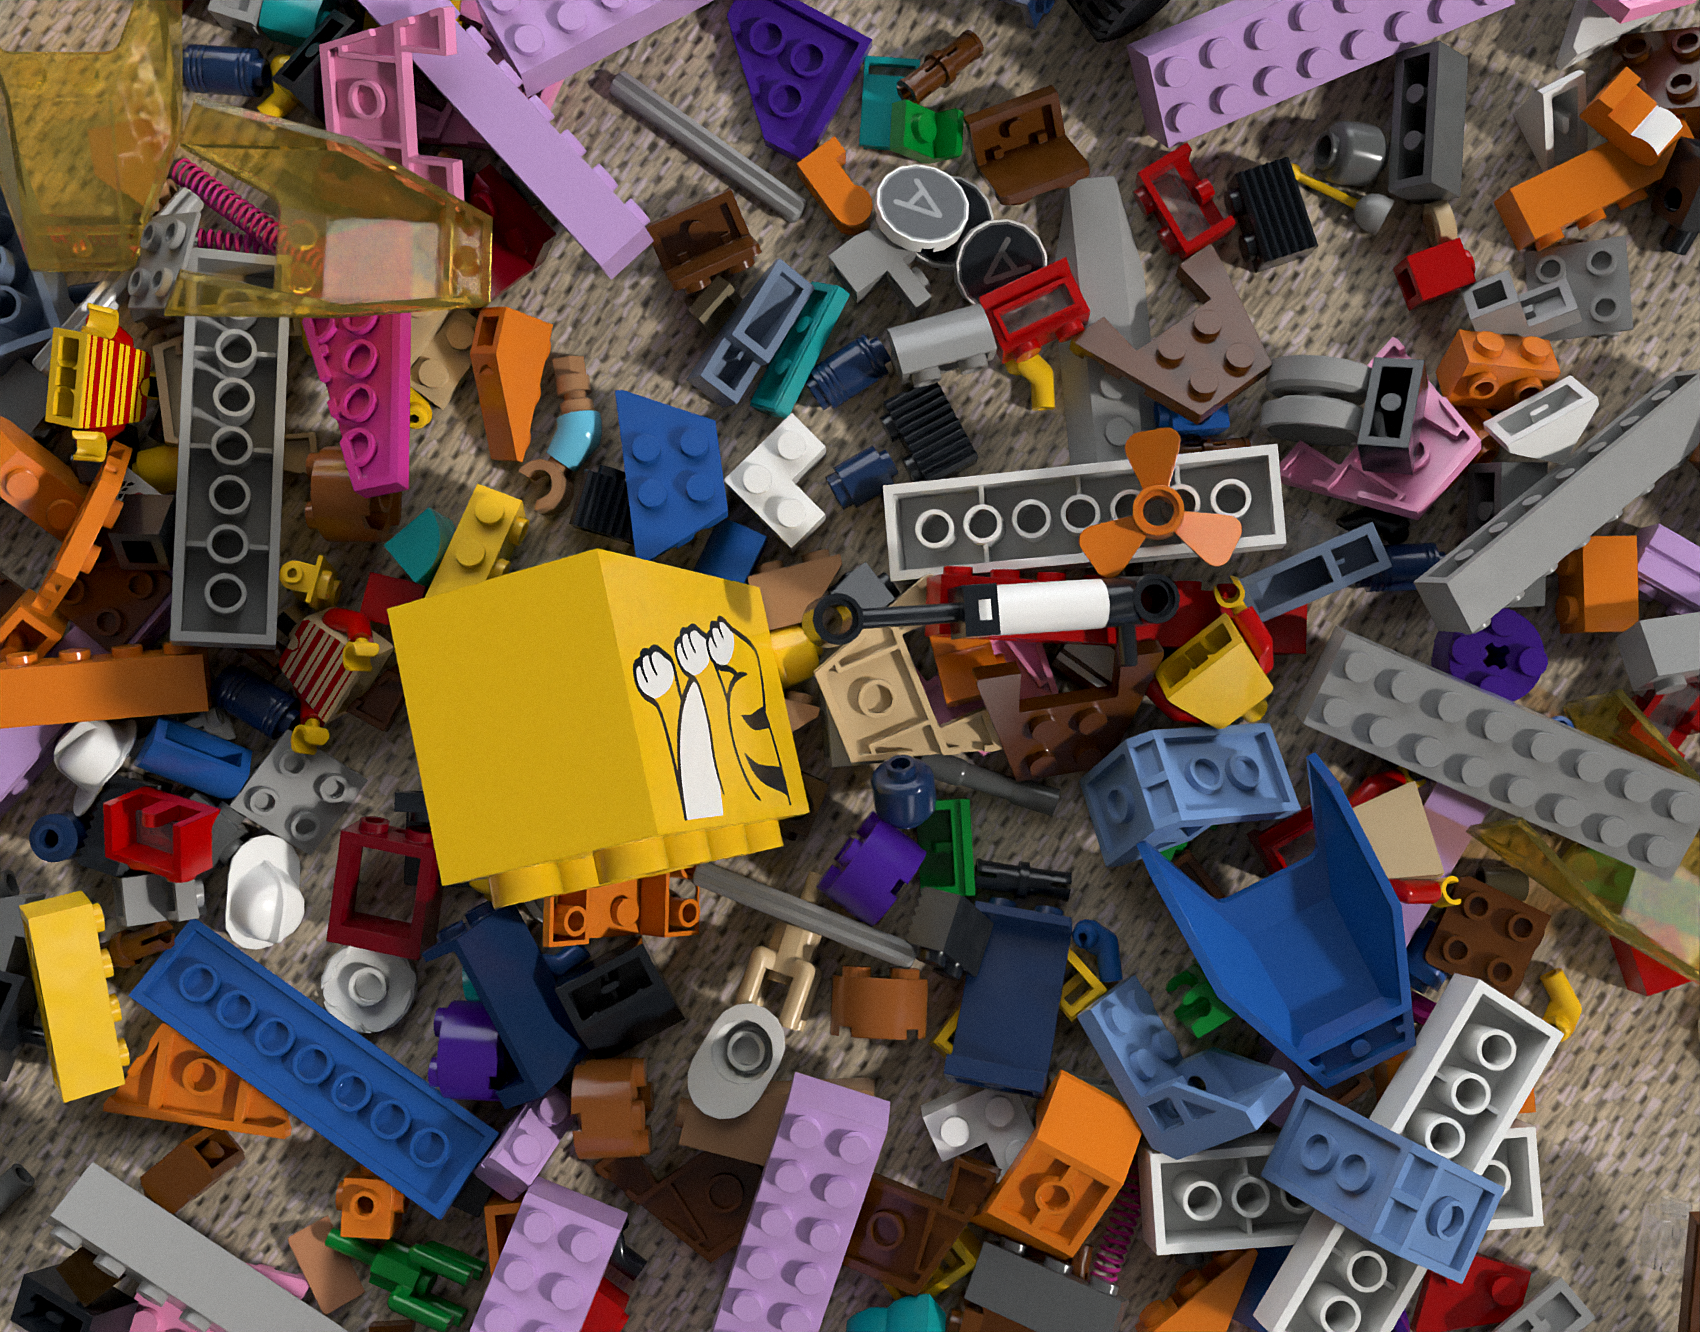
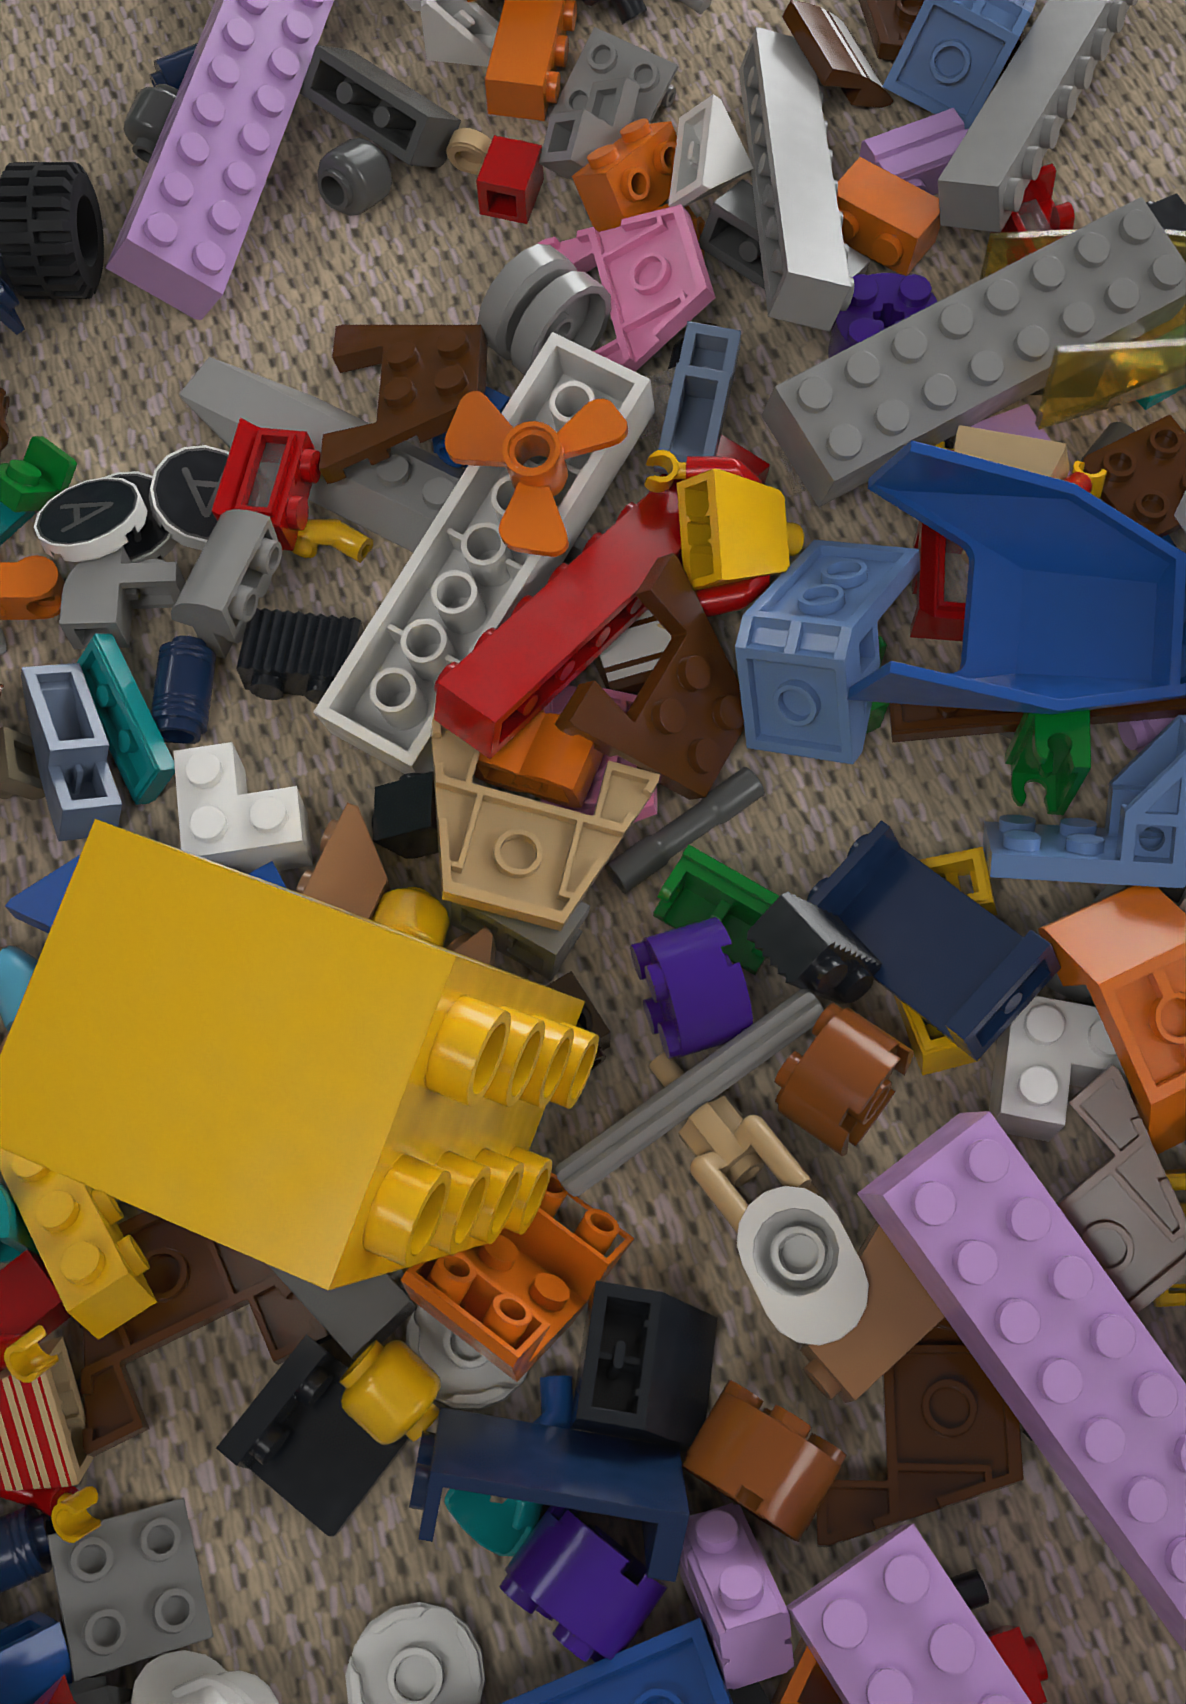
camera: 50 degrees left, 20 degrees down
(378, 932) = (369, 1604): dark red window -> none
(862, 477) = (292, 744): dark blue brick -> none
(904, 791) = (633, 894): dark blue head -> none
(1014, 609) = (503, 656): black piece -> none
(1023, 880) = (813, 860): black pin -> none
(1024, 147) = (112, 409): reddish brown bracket -> none
(1103, 945) = (933, 831): blue arm -> none
(1181, 204) = (280, 326): red window -> none
(1270, 215) = (352, 265): black brick -> none
(1368, 211) = (415, 196): light grey hinge -> none
(1393, 415) = (606, 252): black brick -> none
(1408, 564) = (760, 349): dark blue head -> none

